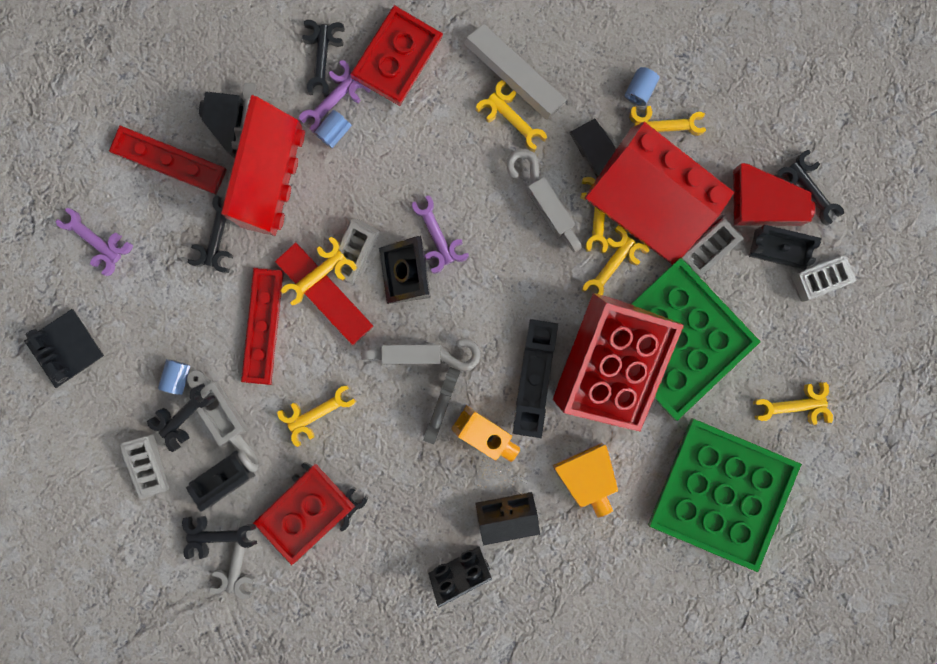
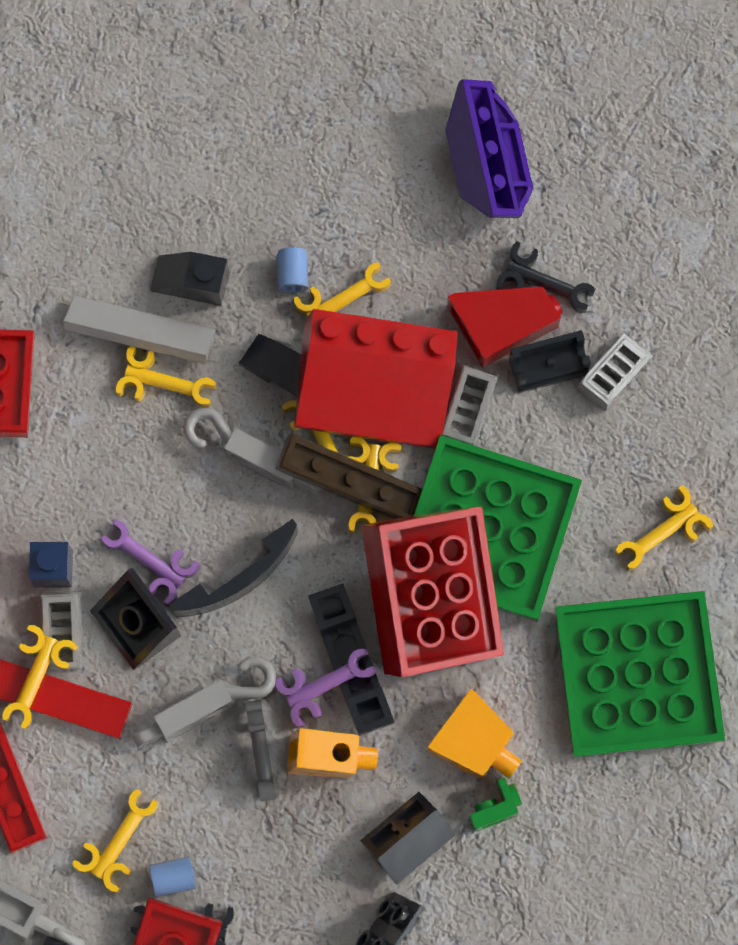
camera: 30 degrees left, 10 degrees down
(338, 457) = (172, 876): none -> medium blue piece
(368, 202) = (50, 564): none -> dark blue brick
(489, 383) = (300, 695): none -> medium lavender bar
(527, 273) = (199, 602): none -> black slope
(570, 53) = (191, 277): none -> black slope
(573, 534) = (490, 813): none -> green bracket
(601, 253) = (348, 478): none -> dark brown tile
(825, 73) = (487, 151): none -> dark purple wedge

